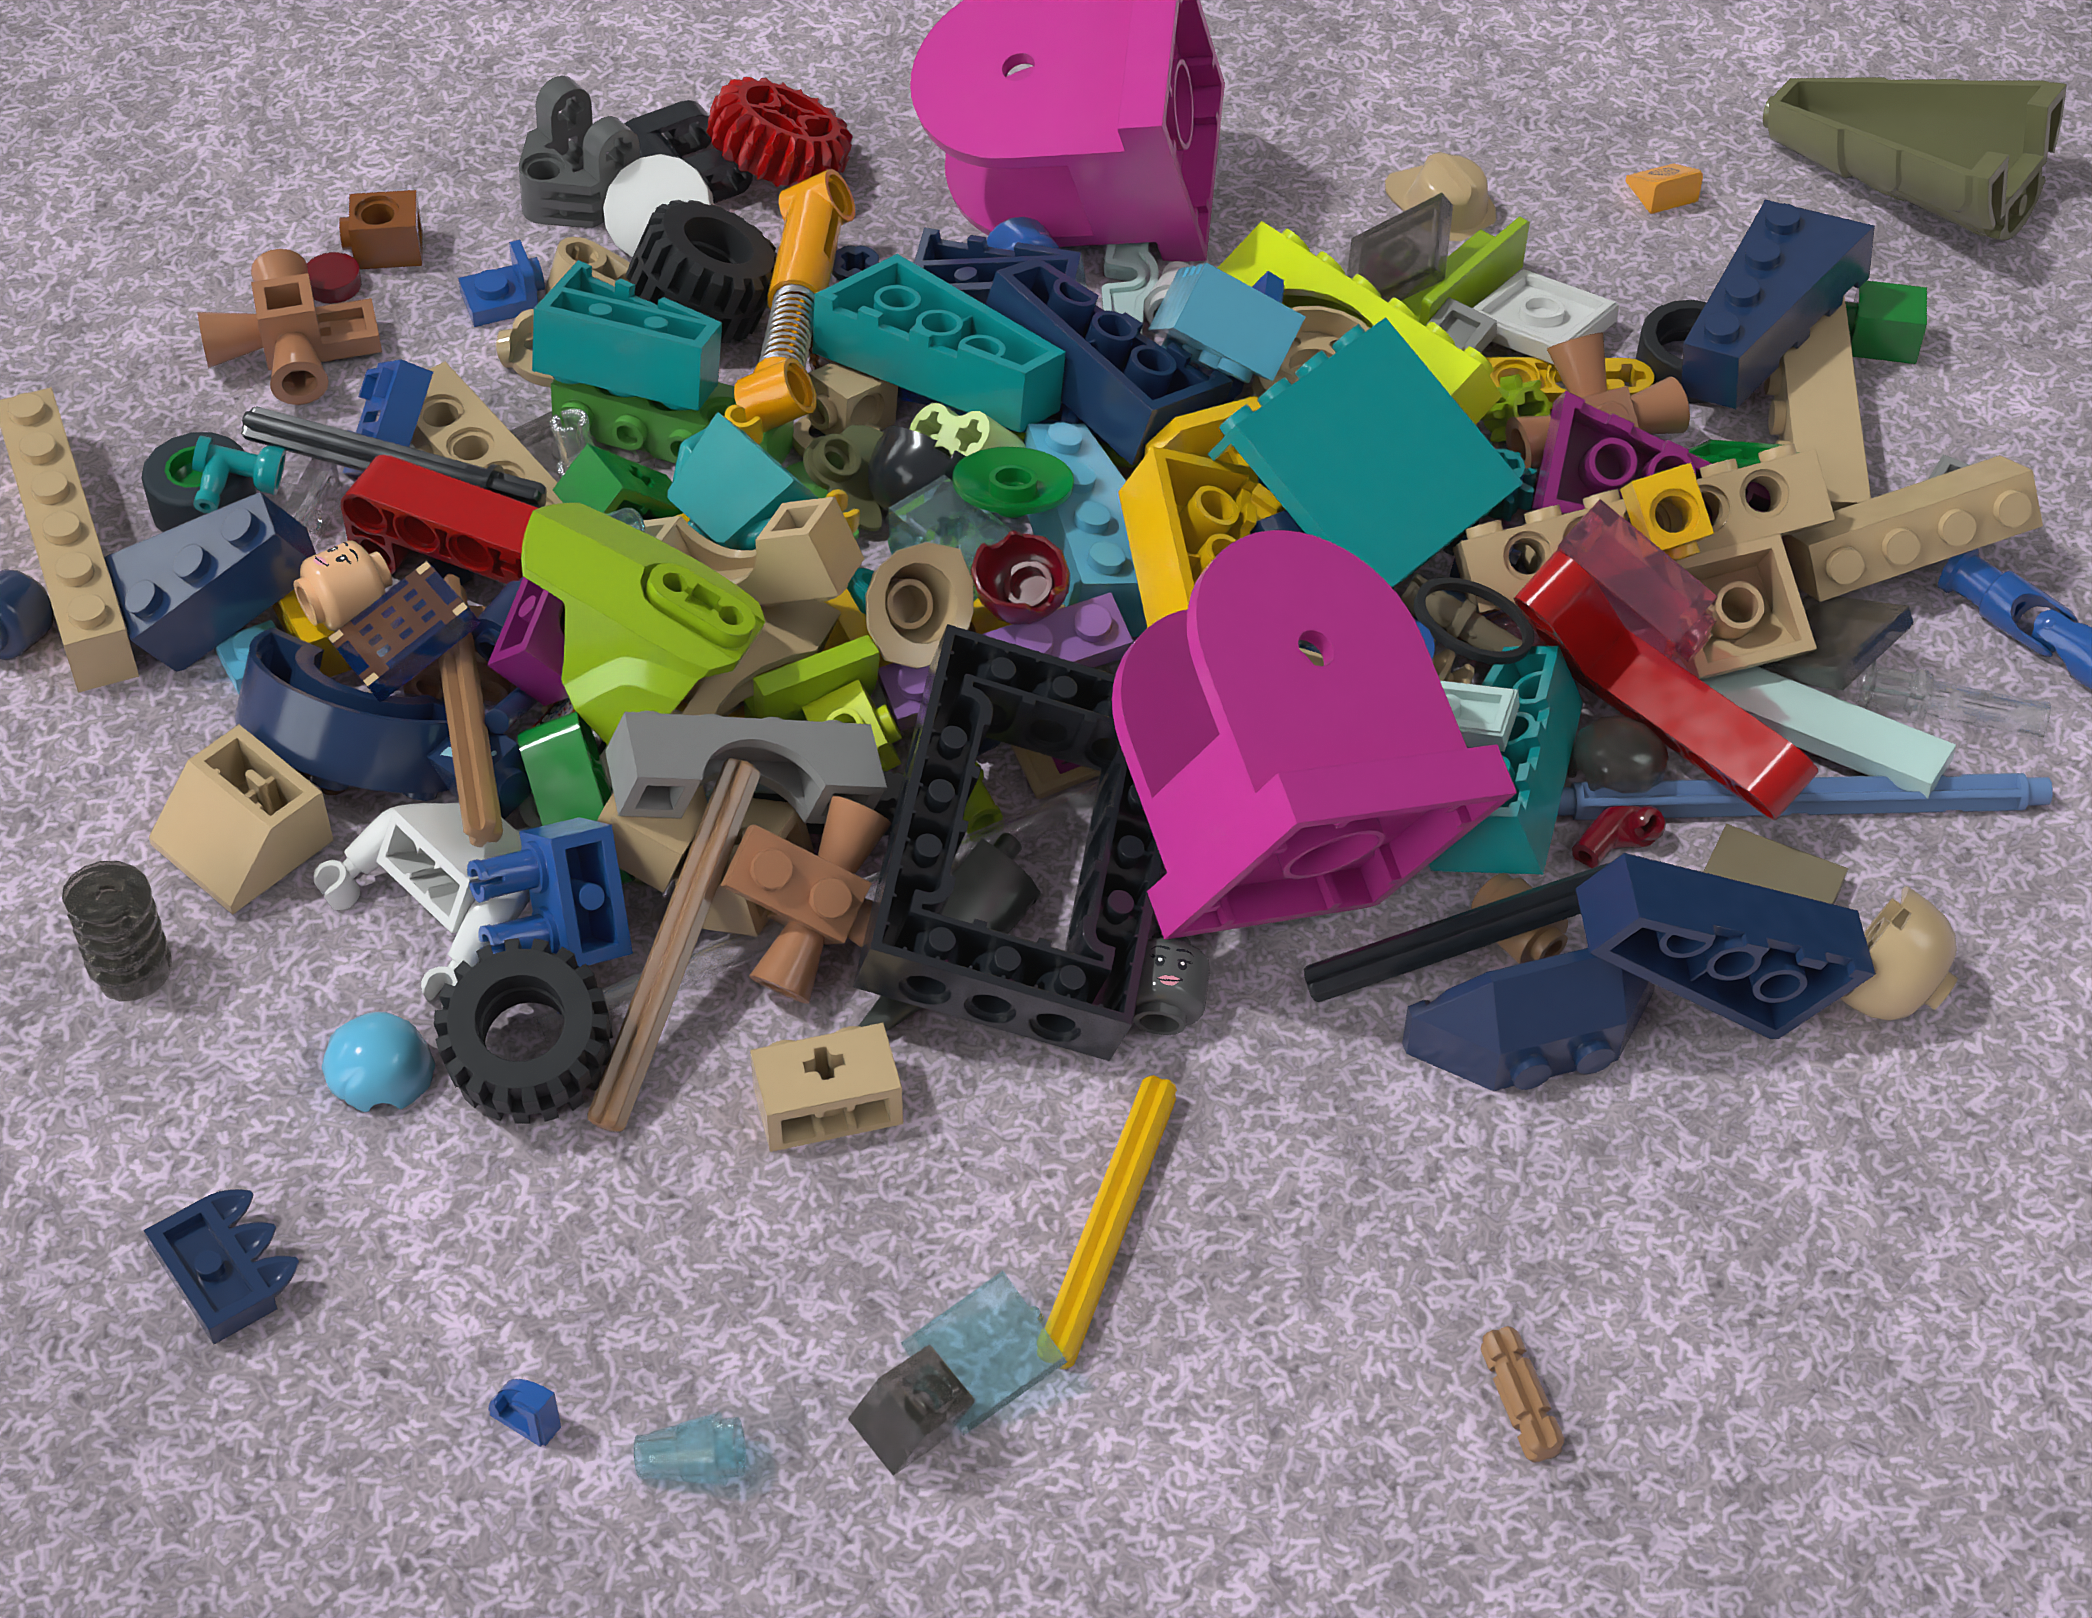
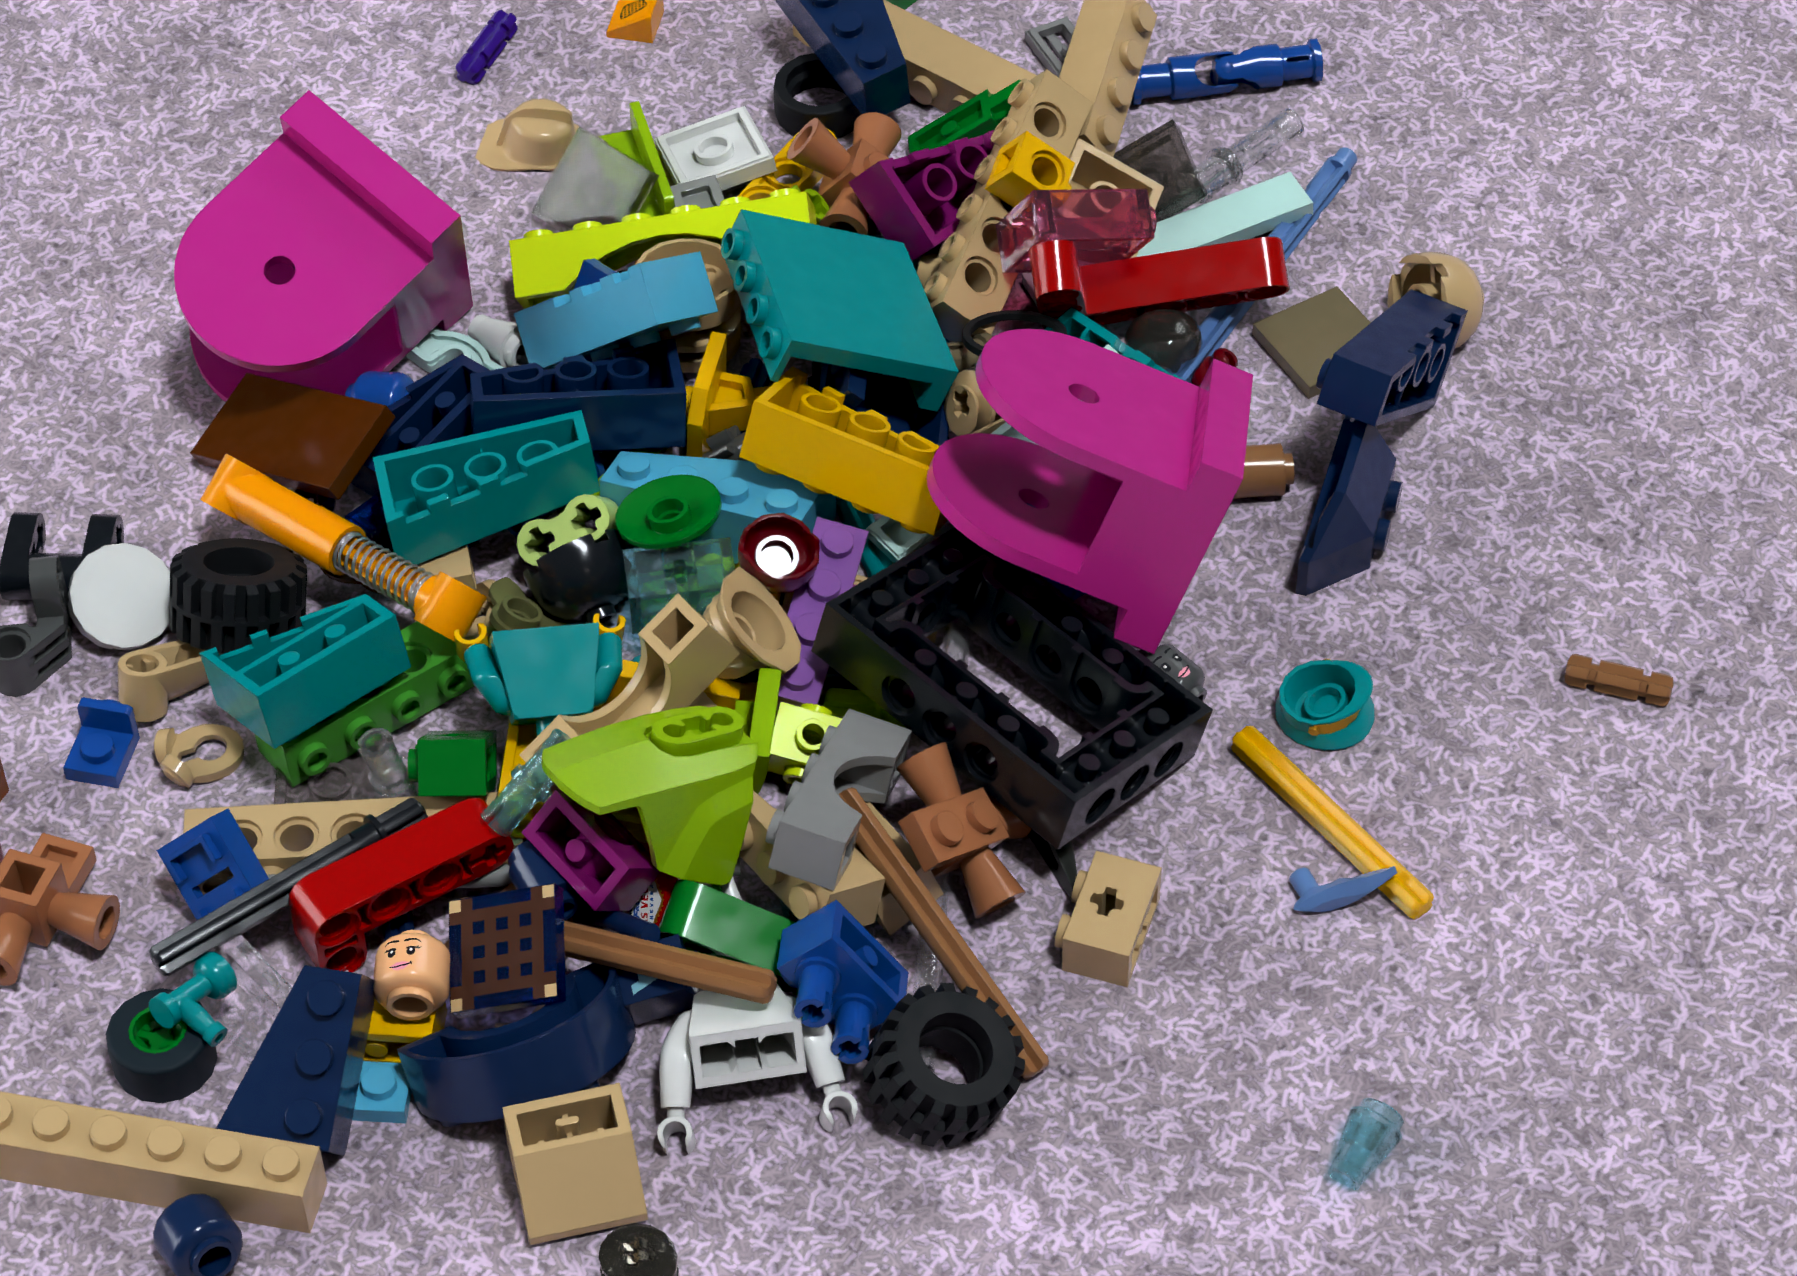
camera: 55 degrees left, 0 degrees up
(378, 1062) = (874, 1184): medium azure hair -> none
(527, 1410) = (1261, 1224): blue tile -> none
(777, 131) = (115, 476): red gear -> none
(910, 211) = (295, 434): none -> reddish brown tile
(911, 1409) = (1430, 996): clear smoke brick -> none
(991, 1347) = (1395, 942): clear light blue piece -> none
(1000, 1255) = (1337, 893): none -> medium blue bar
(1260, 1138) = (1326, 704): none -> teal piece
(1446, 938) = (1256, 501): black axle -> none
(1522, 110) = (486, 47): none -> dark purple axle

